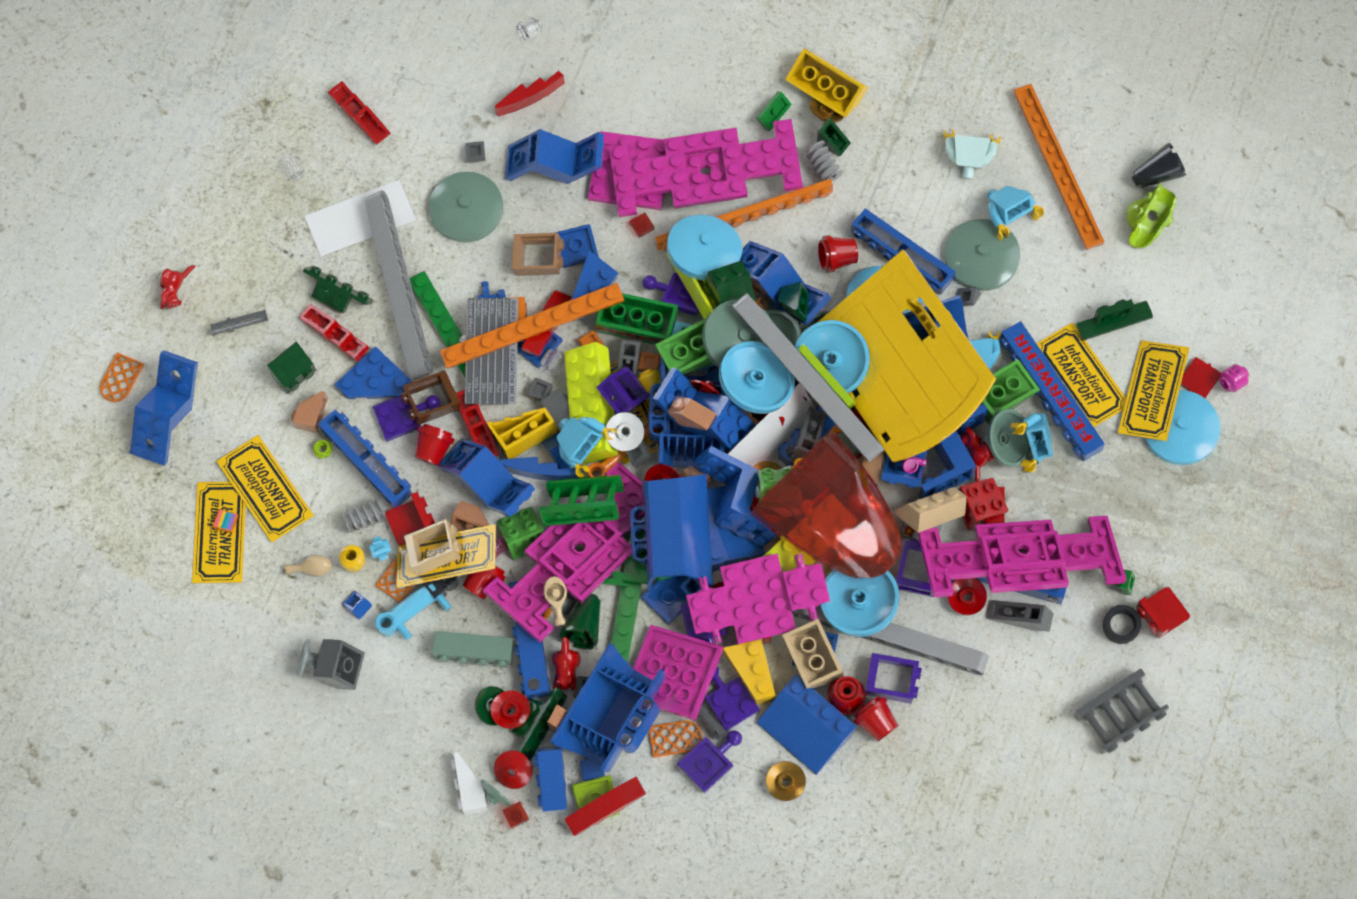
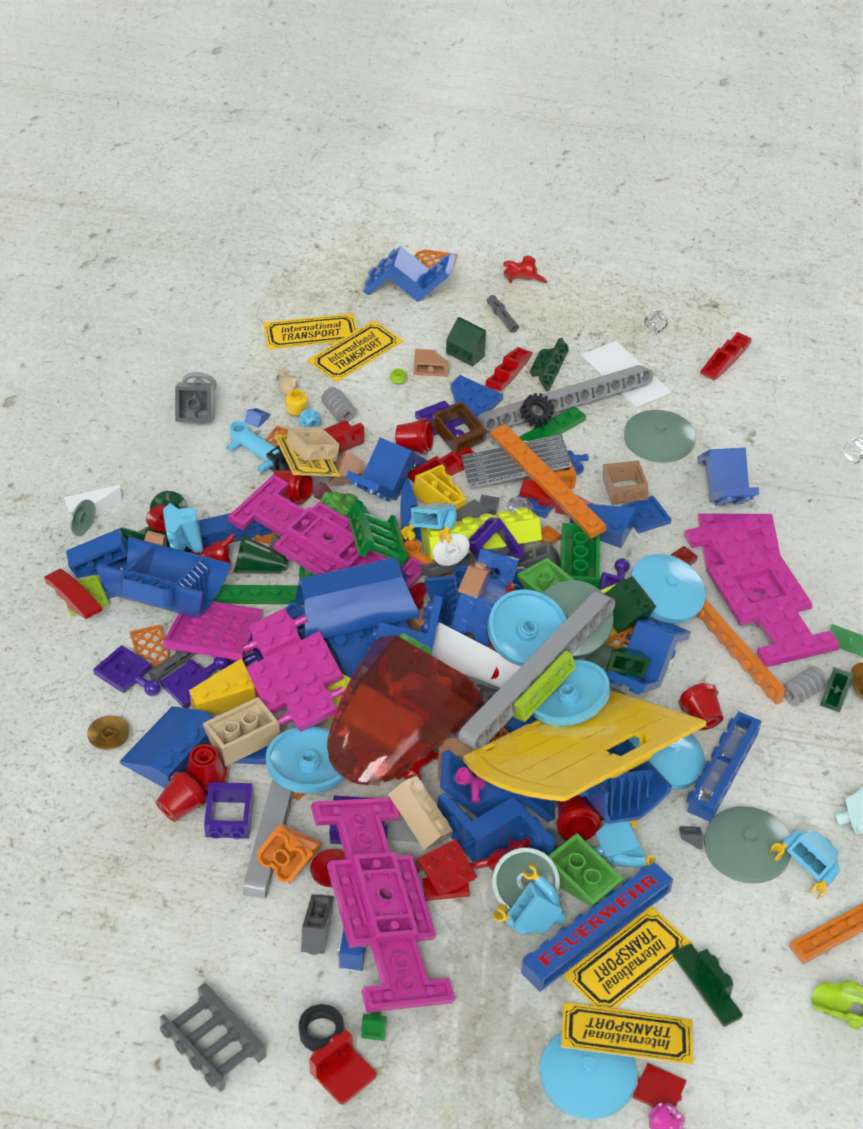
camera: 75 degrees right, 25 degrees down
(225, 521) = (320, 330): tile -> none
(365, 459) = (393, 398): blue piece -> none
(429, 306) = (533, 418): none -> black tyre
(473, 648) = (222, 487): sand green brick -> none
(475, 151) = (716, 432): dark grey plate -> none
(515, 815) = (65, 539): clear red plate -> none
(519, 764) = (108, 525): red dish -> none
(523, 97) = (794, 463): red slope -> none
(550, 687) = (183, 528): none -> medium azure piece
(555, 594) = (274, 520): tan piece -> none
(959, 627) = (287, 852): none -> orange piece

